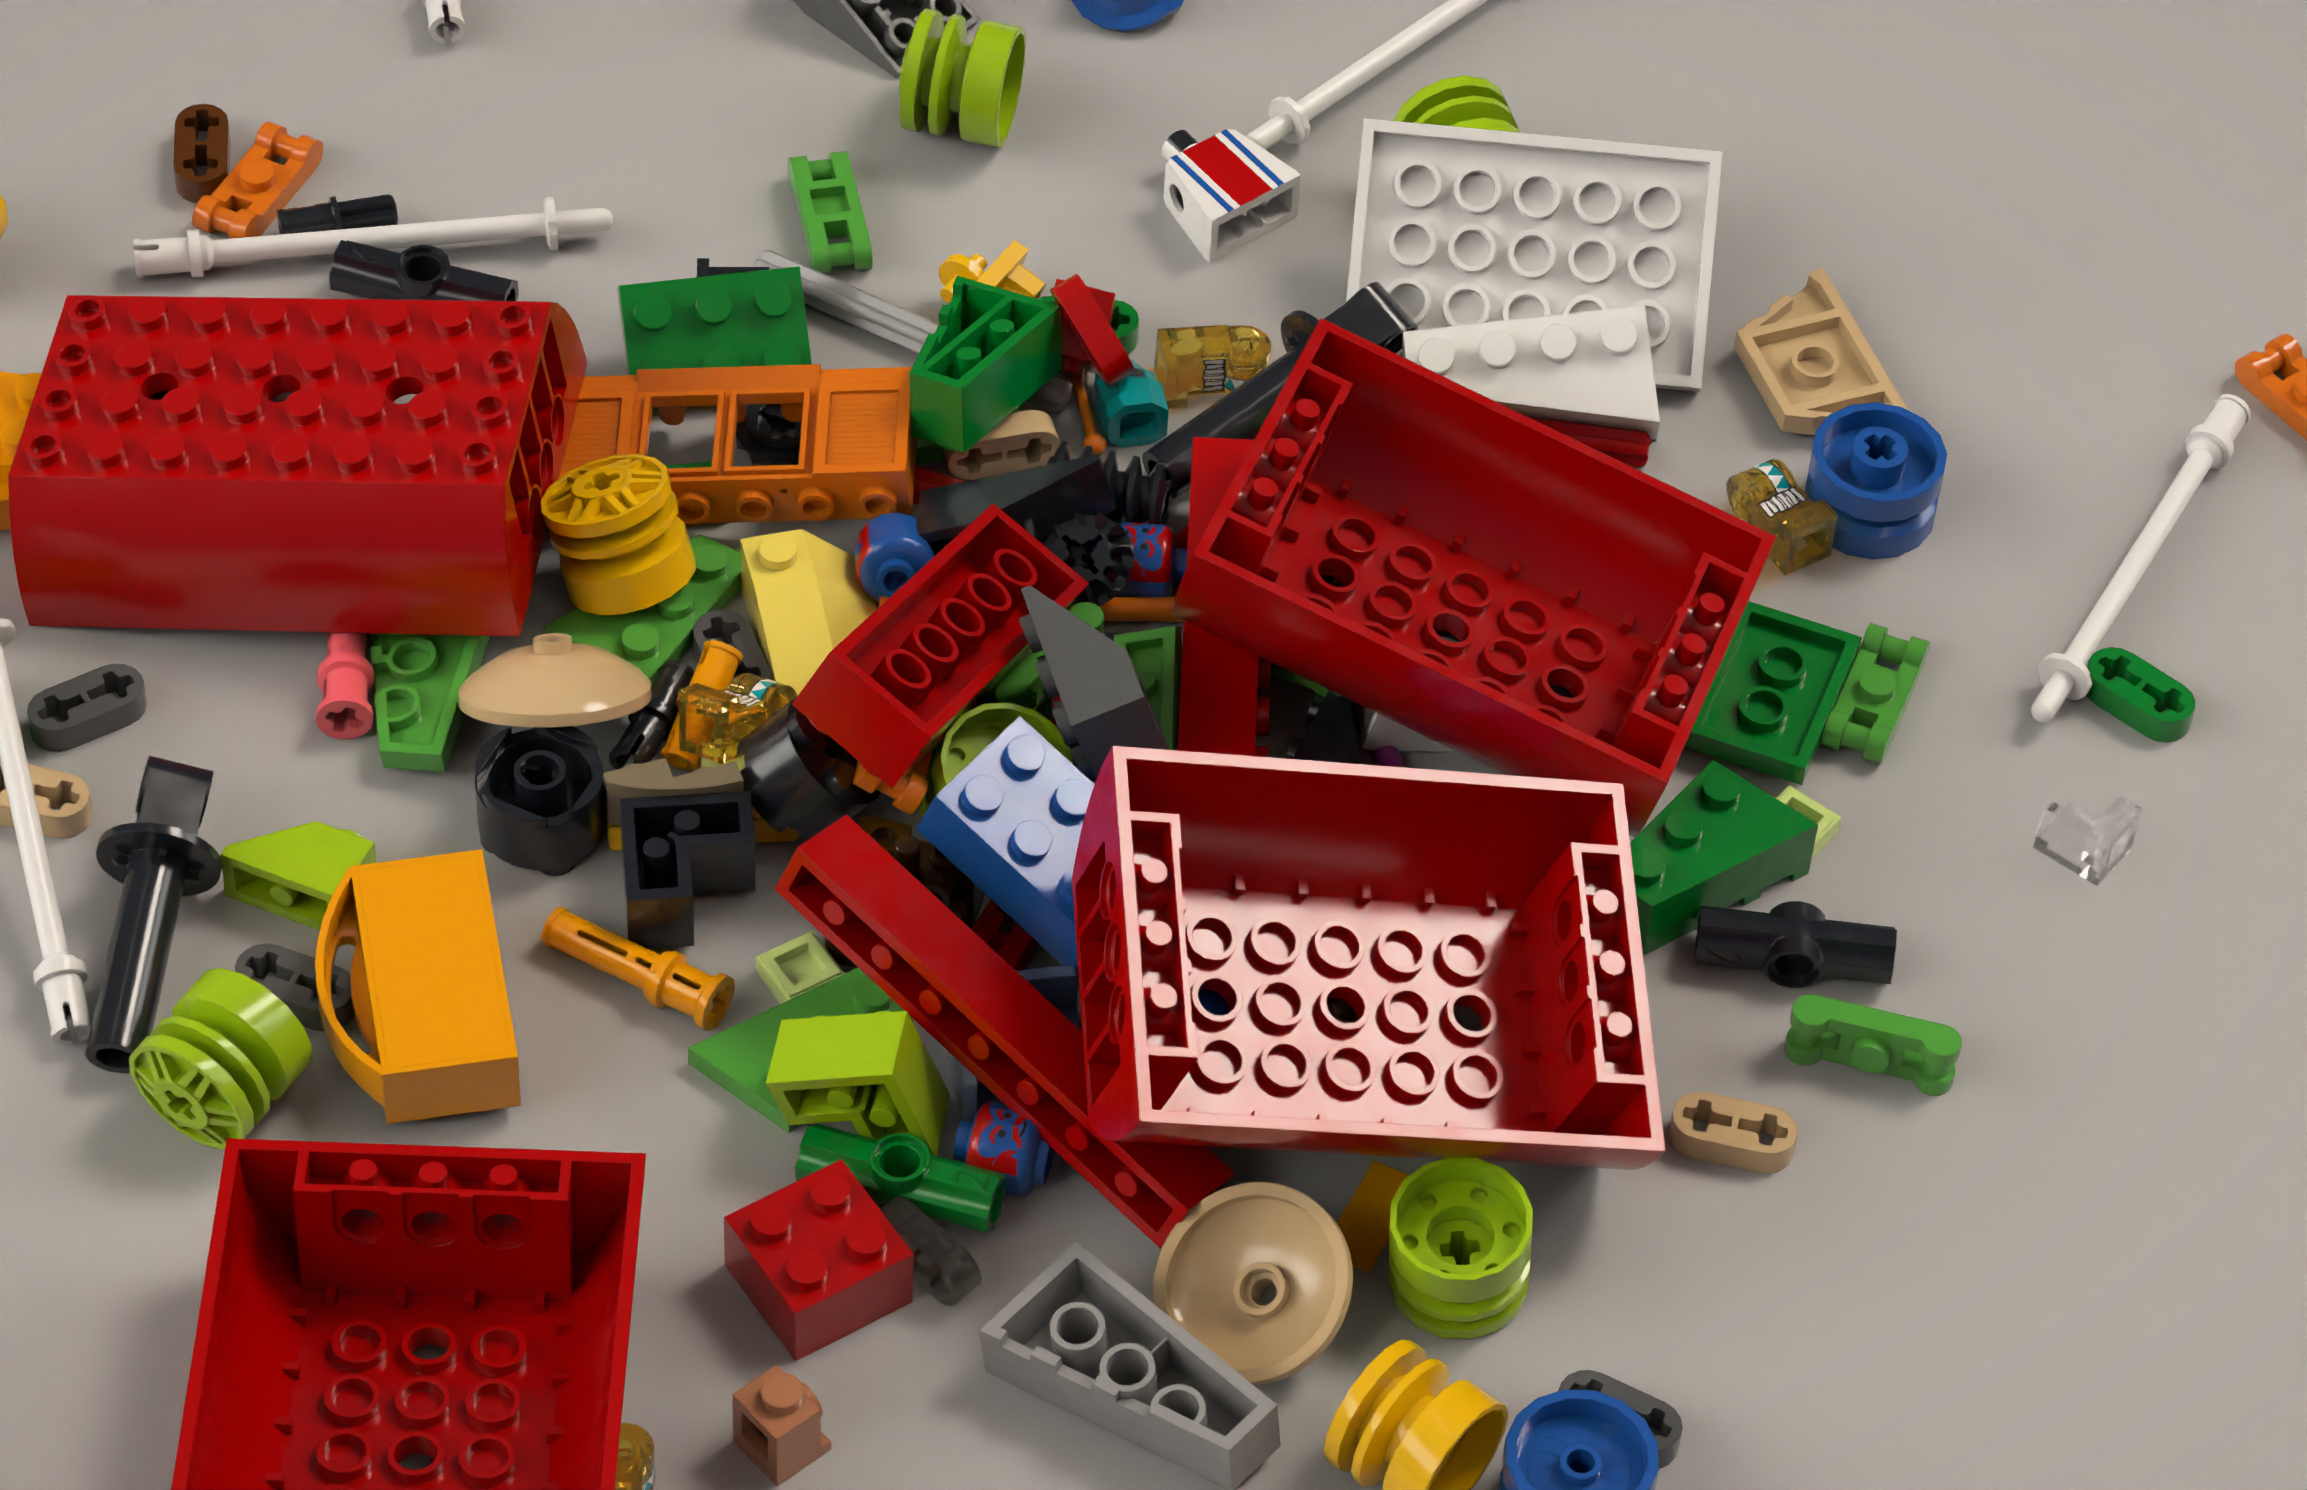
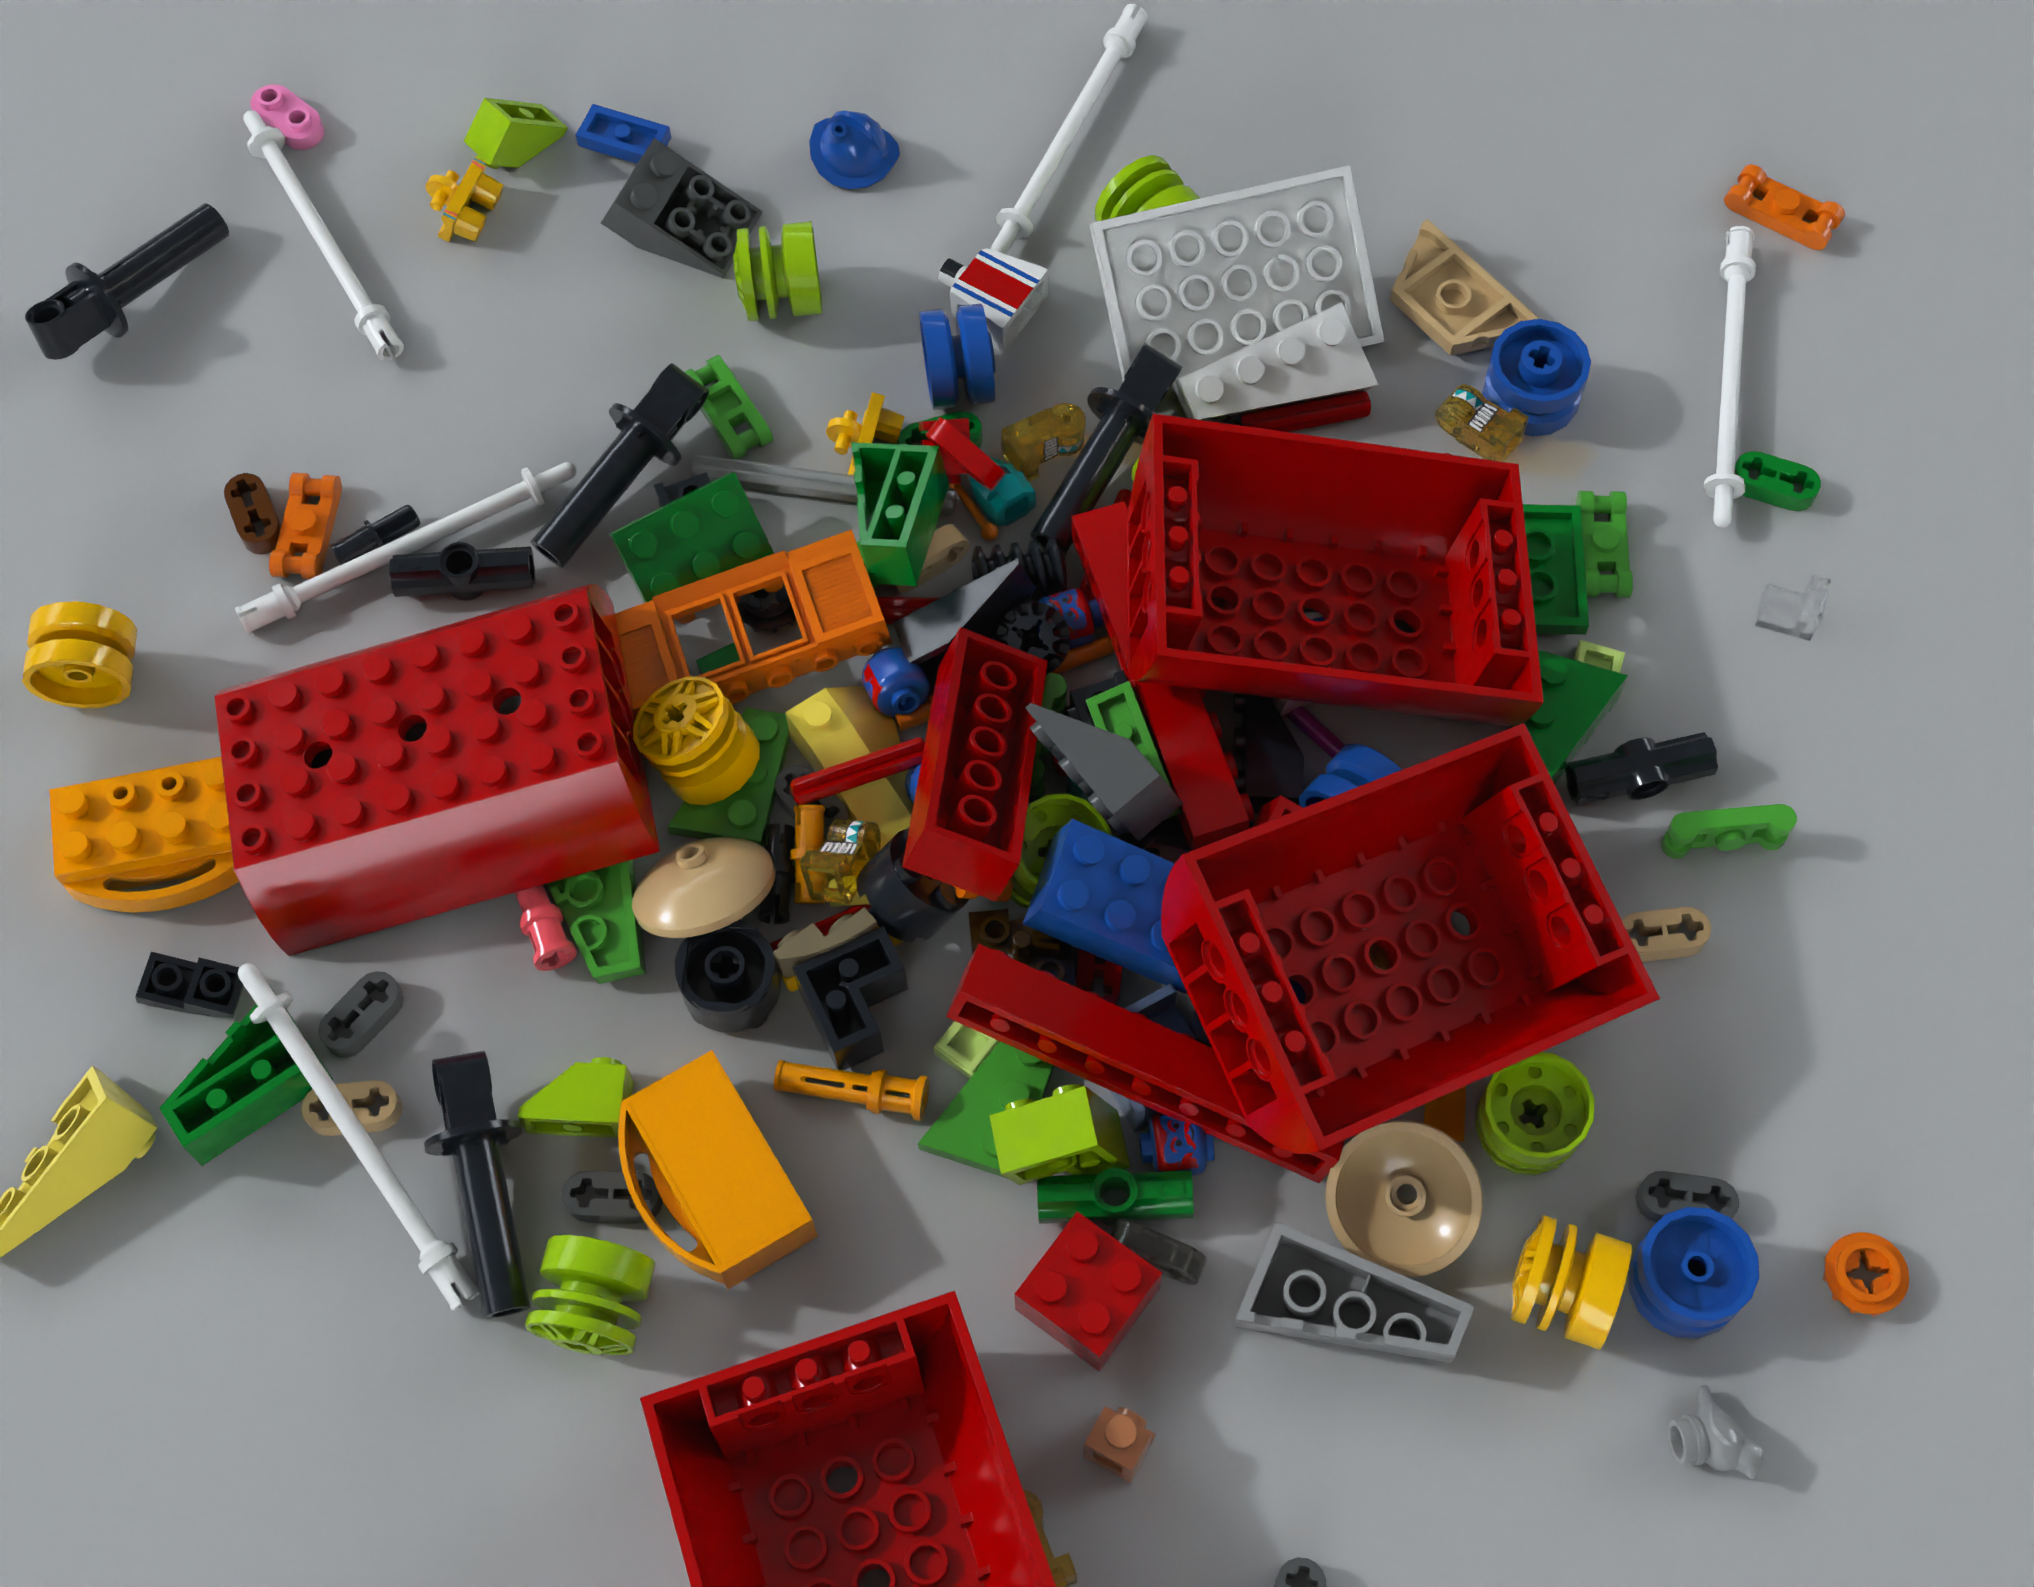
camera: 15 degrees left, 15 degrees up
(713, 201) = (643, 435): none -> black piece
(781, 627) = (857, 771): none -> red axle
(1129, 232) = (959, 356): none -> blue wheel

